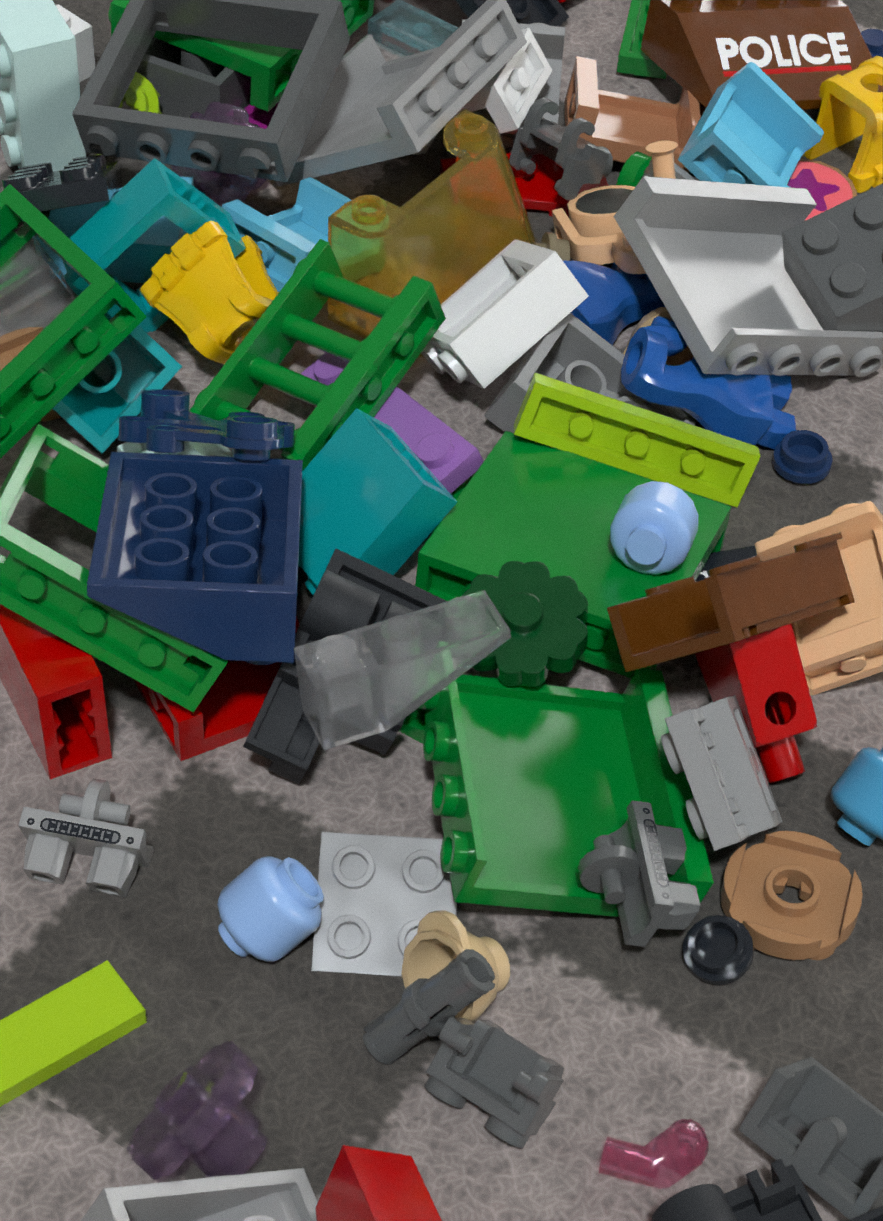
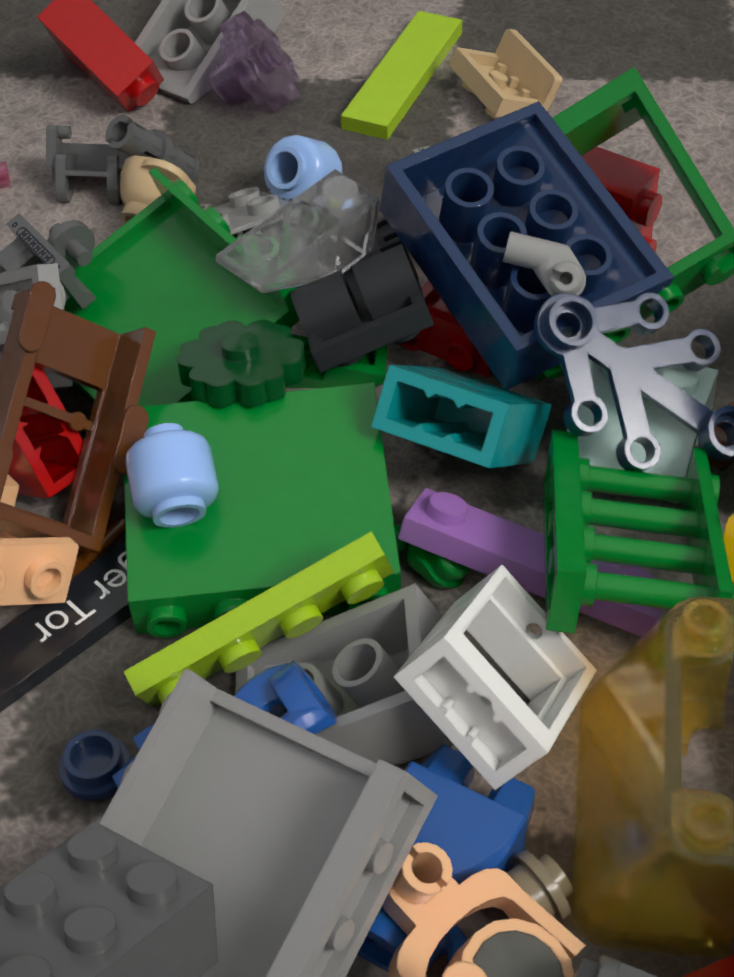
camera: 155 degrees right, 0 degrees up
(222, 472) = (550, 261): none -> light grey arm

